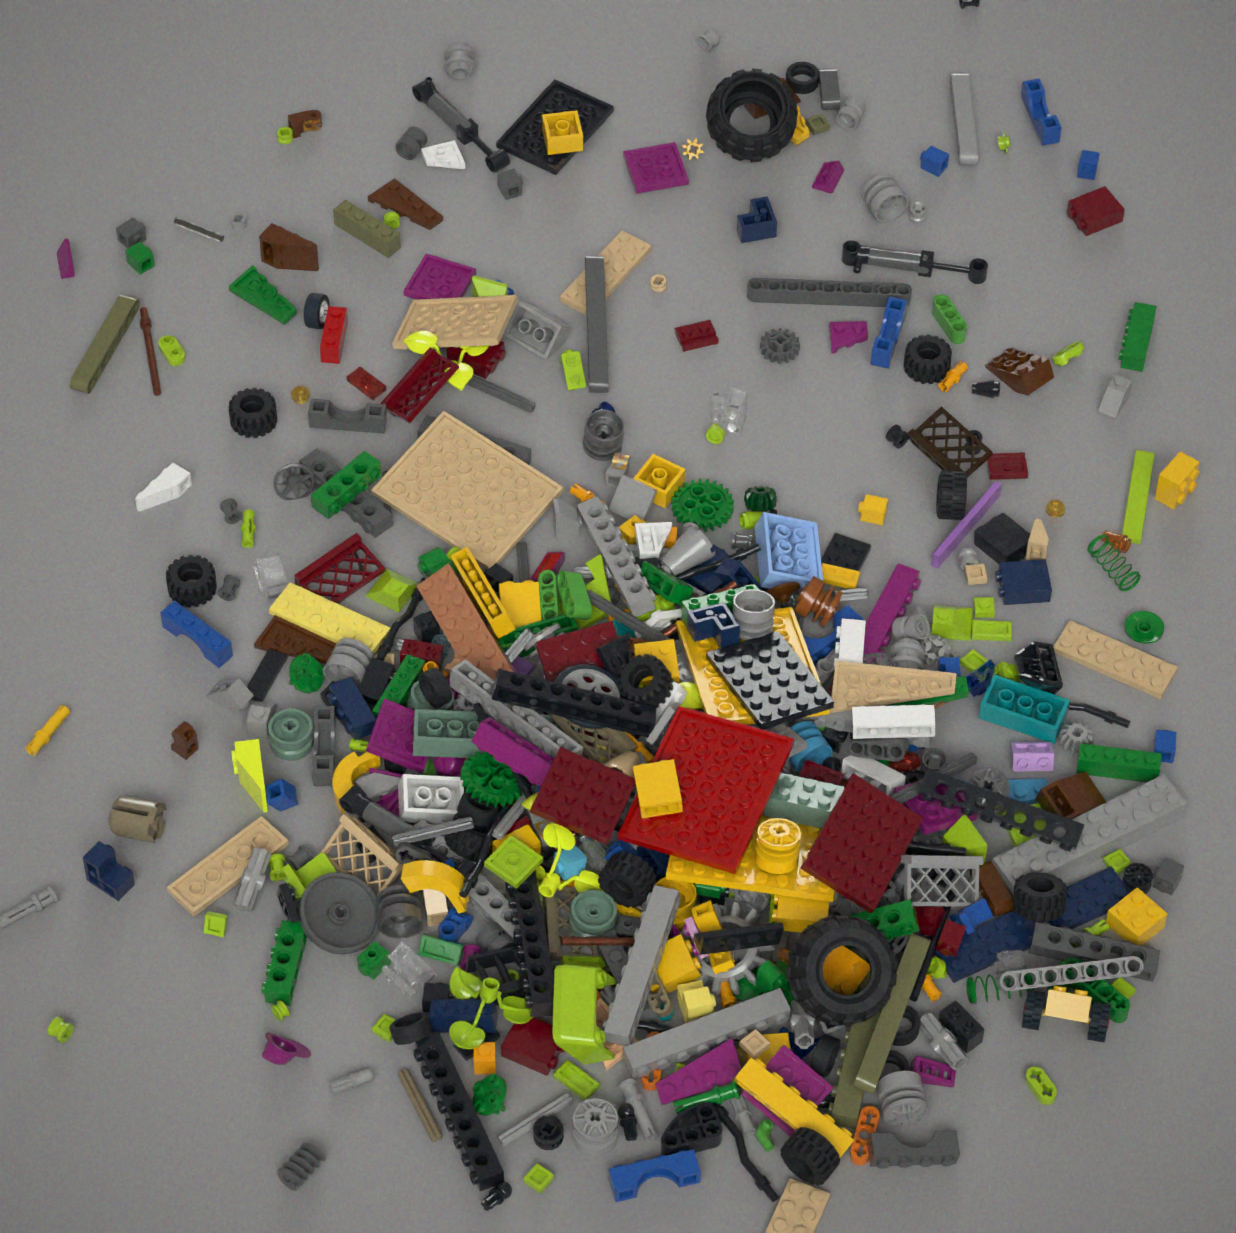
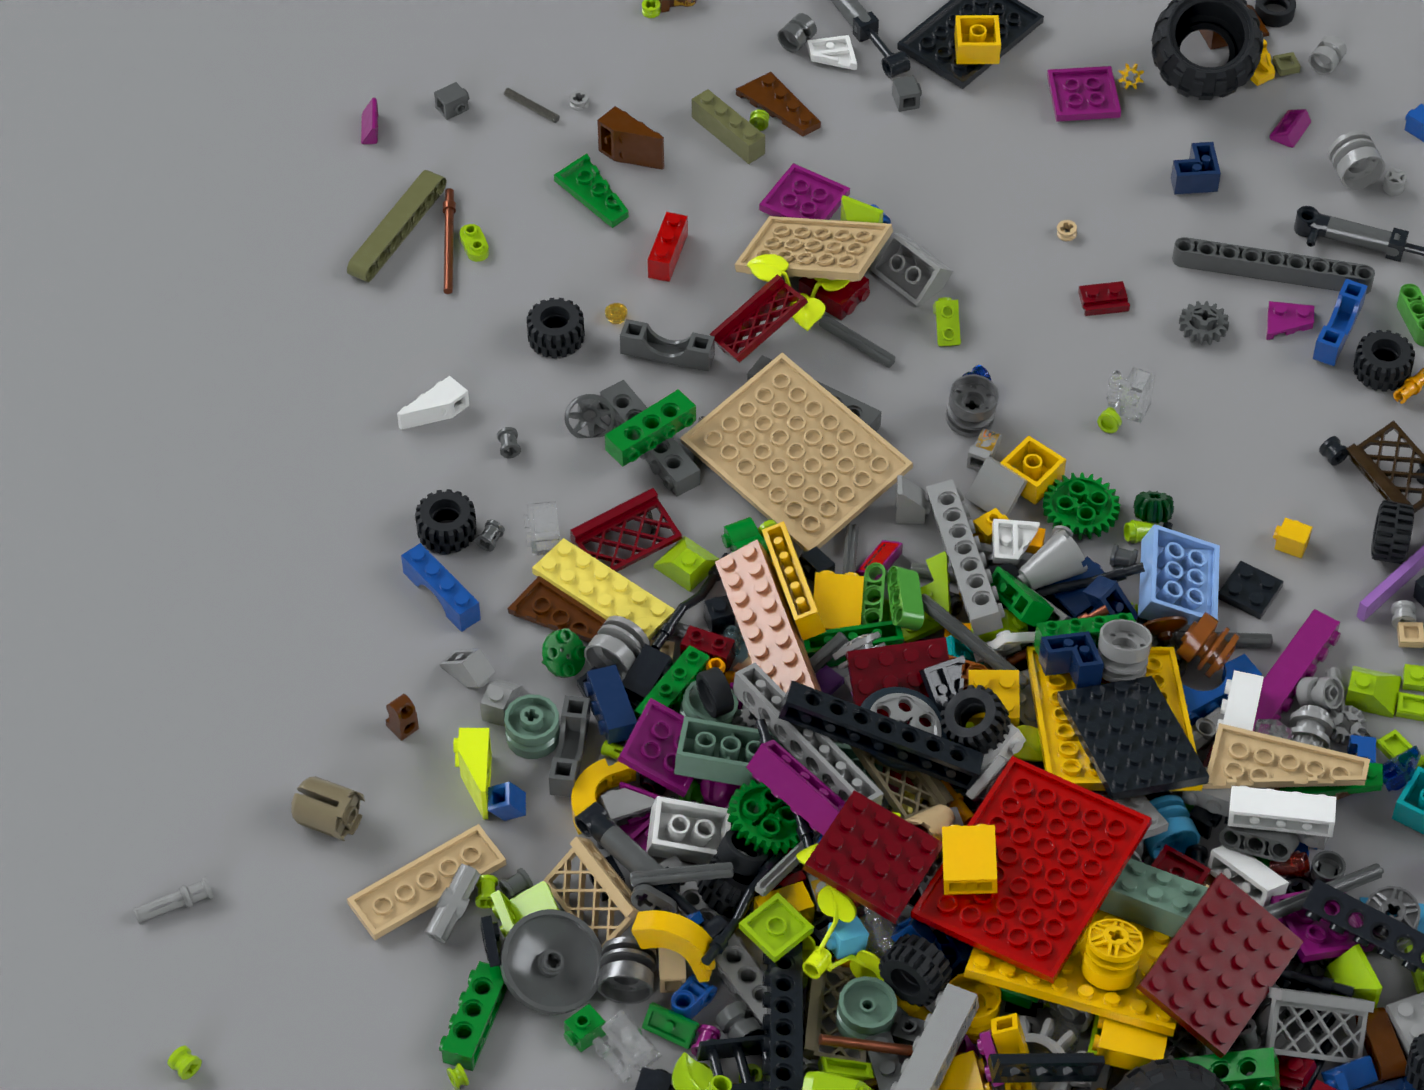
camera: 10 degrees right, 0 degrees up
(42, 736) = (234, 688): yellow pin -> none
(106, 873) = (277, 870): dark blue brick -> none
(140, 258) = (456, 130): green brick -> none
(215, 924) = (398, 953): lime tile -> none
(248, 528) = (526, 466): lime pin -> none
(266, 674) = (516, 647): black tile -> none
(316, 310) = (650, 215): black wheel -> none
(366, 383) = (697, 308): clear red plate -> none
(581, 493) = (936, 473): light orange pin -> none
(596, 324) = (984, 271): dark grey beam -> none
(620, 259) = (1004, 211): tan plate -> none
(829, 89) = (1306, 24): dark grey beam -> none
(840, 576) = (1239, 616): yellow plate -> none

